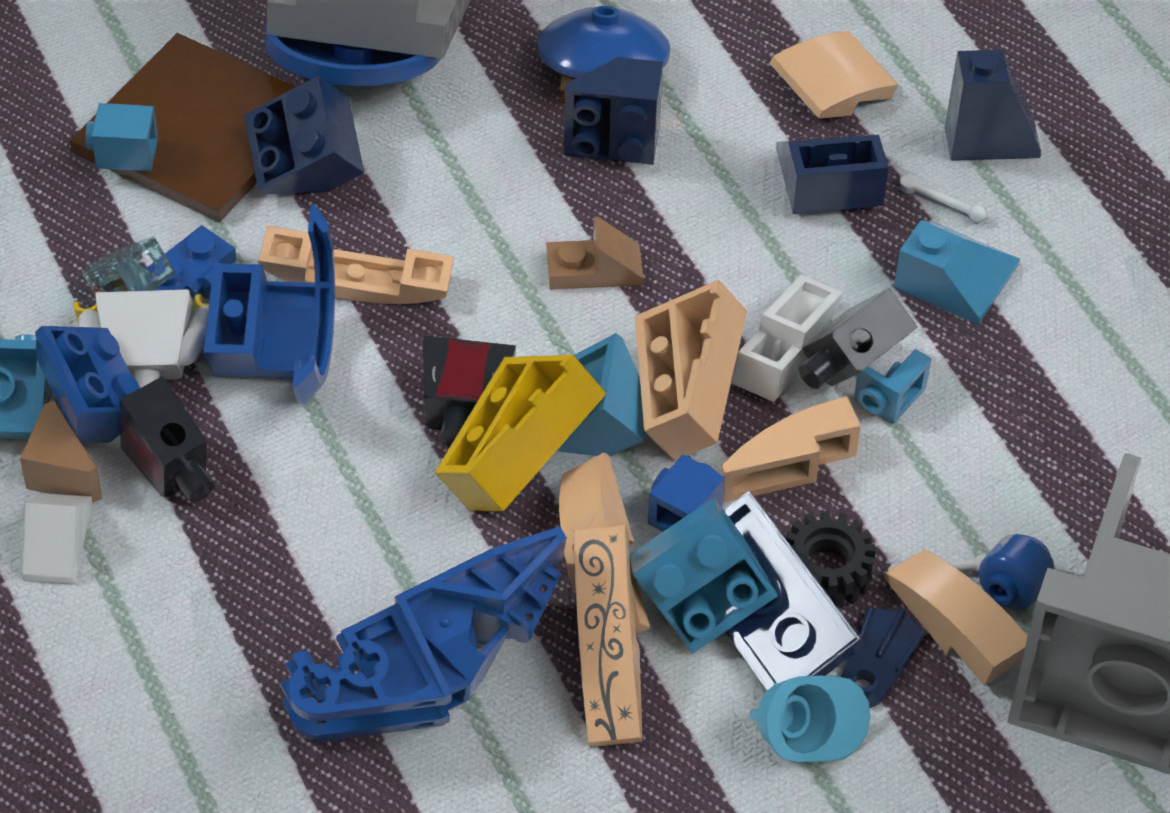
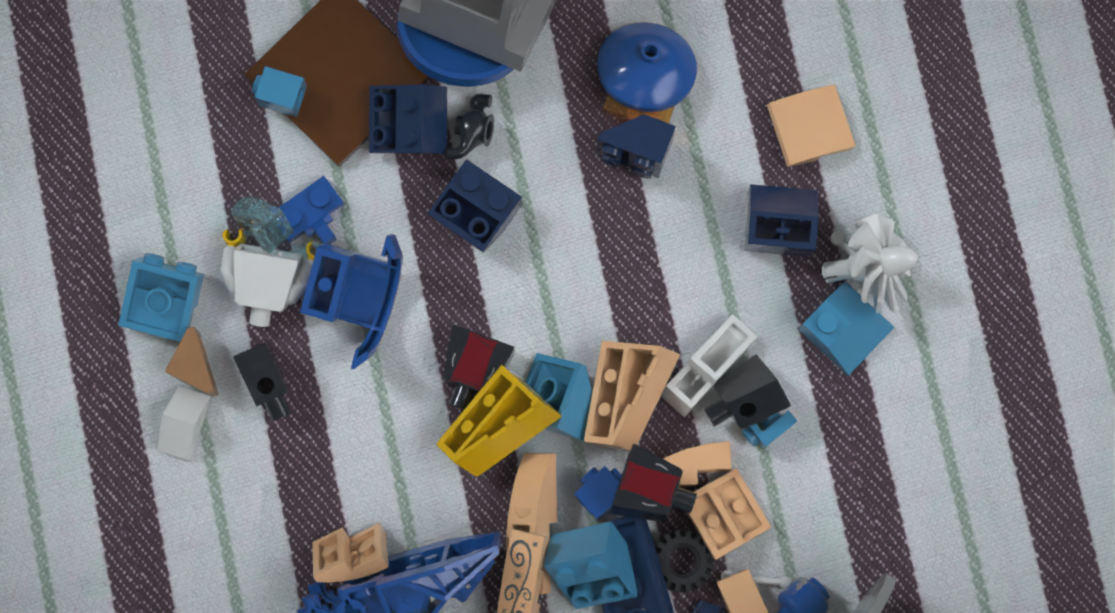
camera: 15 degrees right, 30 degrees up
(85, 378) = (218, 322): blue slope -> none
(329, 623) = (349, 558): none -> light nougat slope
(359, 276) = (421, 240): light nougat slope -> none
(392, 143) = (473, 127): none -> black piece
(423, 207) = (476, 206): none -> dark blue slope
(601, 262) = (592, 266): medium nougat slope -> none
(757, 450) = (650, 488): none -> torso
(871, 489) = (727, 514): none -> light nougat slope
(970, 173) = (876, 263): none -> white piece
(988, 110) = (912, 201): dark blue slope -> none

